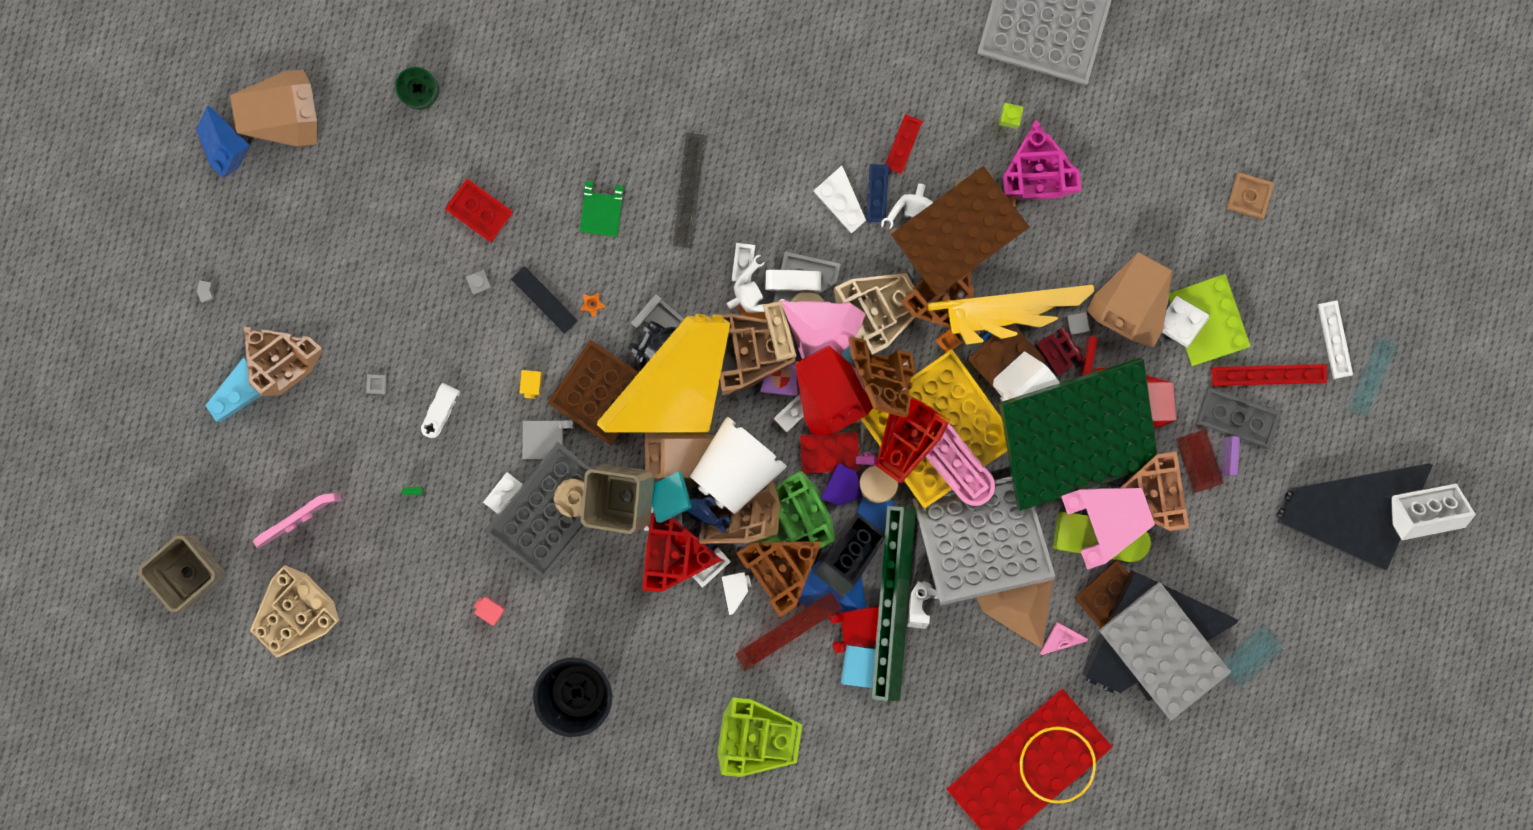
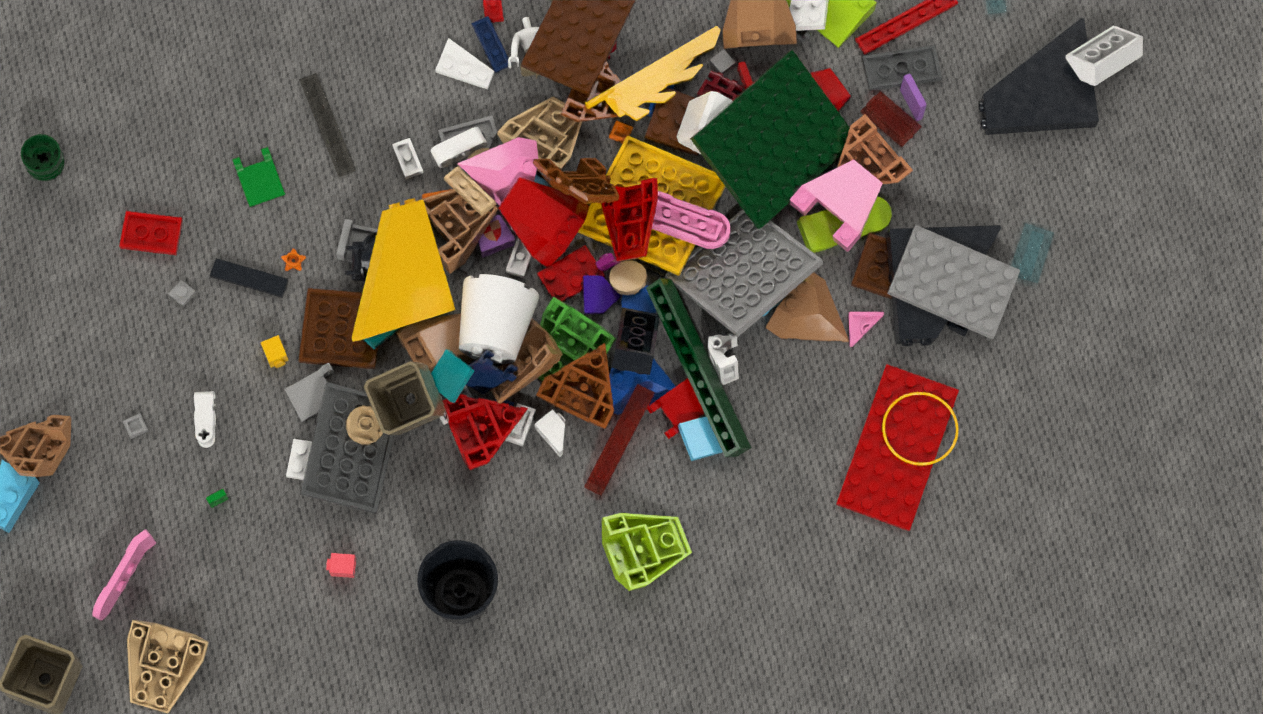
camera: 25 degrees left, 15 degrees down
(748, 294) = (426, 179): white piece -> none

